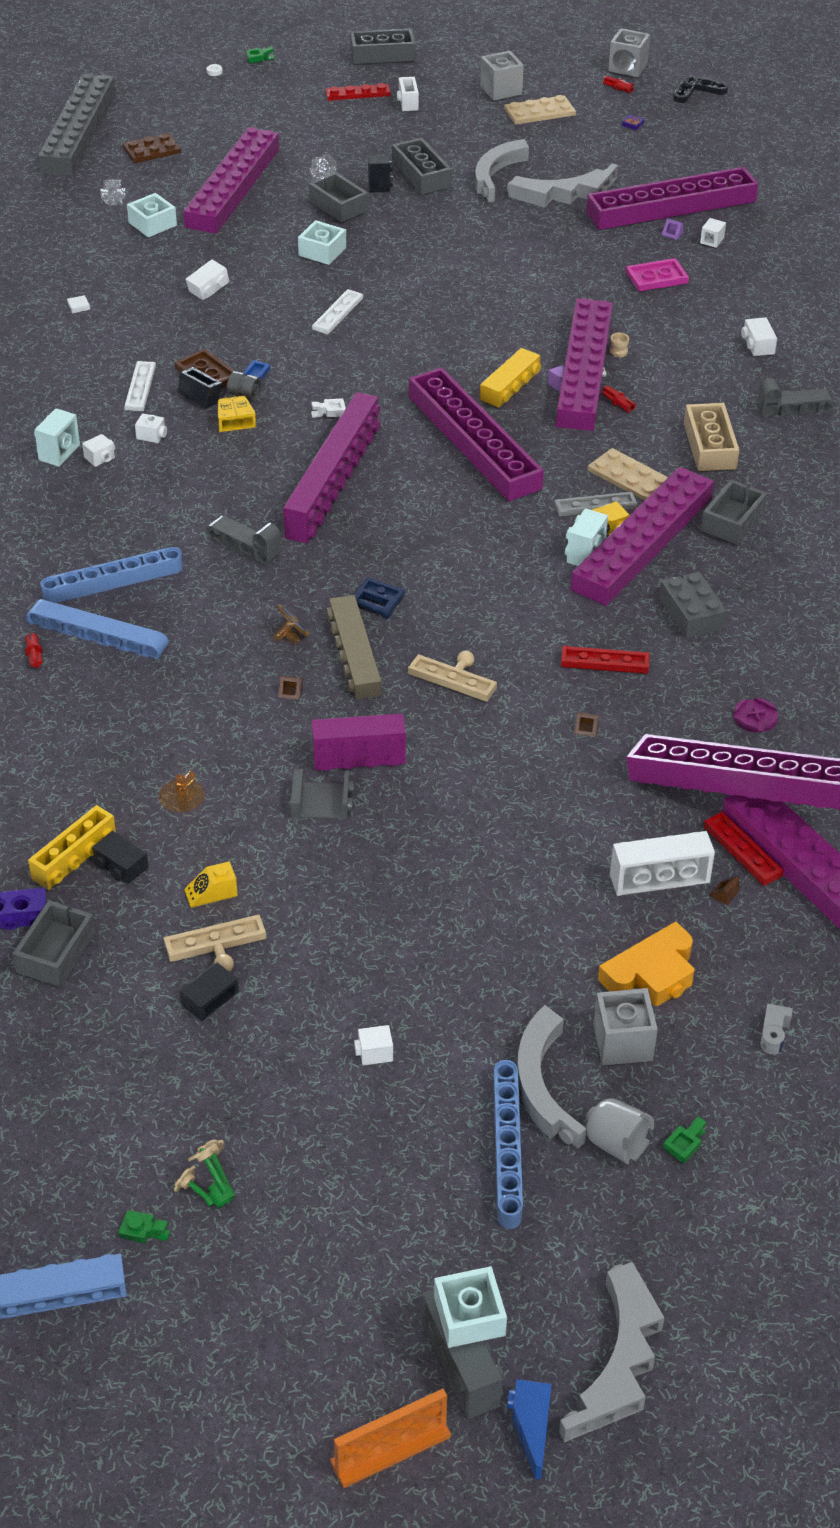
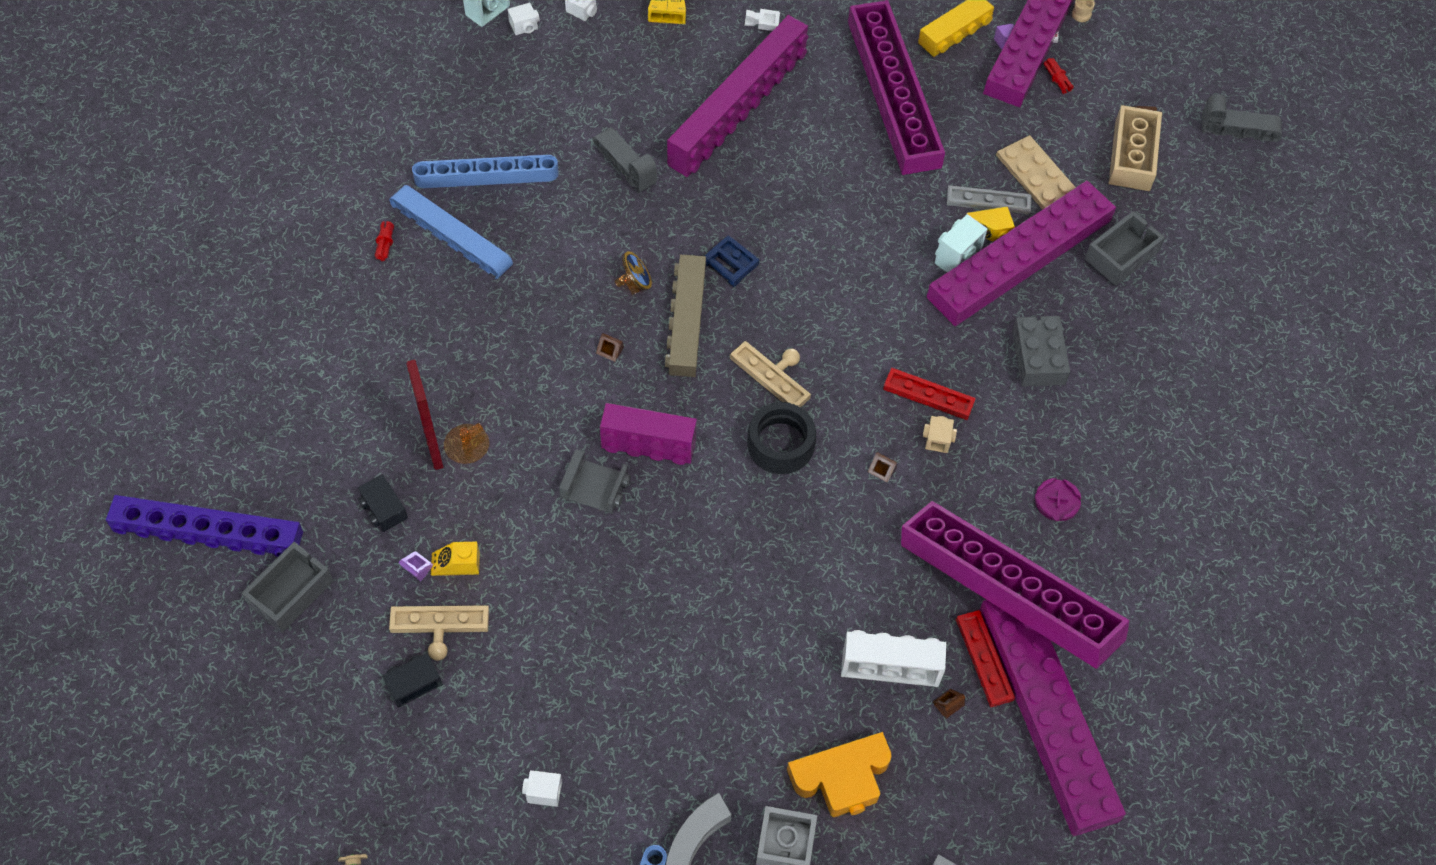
camera: 15 degrees right, 15 degrees up
(70, 848) = (340, 481): yellow brick -> none
(145, 758) = (424, 414): none -> dark red tile
(173, 901) = (416, 565): none -> medium lavender slope
(479, 738) = (782, 414): none -> black tyre
(628, 687) = (939, 434): none -> tan brick
(759, 336) = (1233, 32): white brick -> none

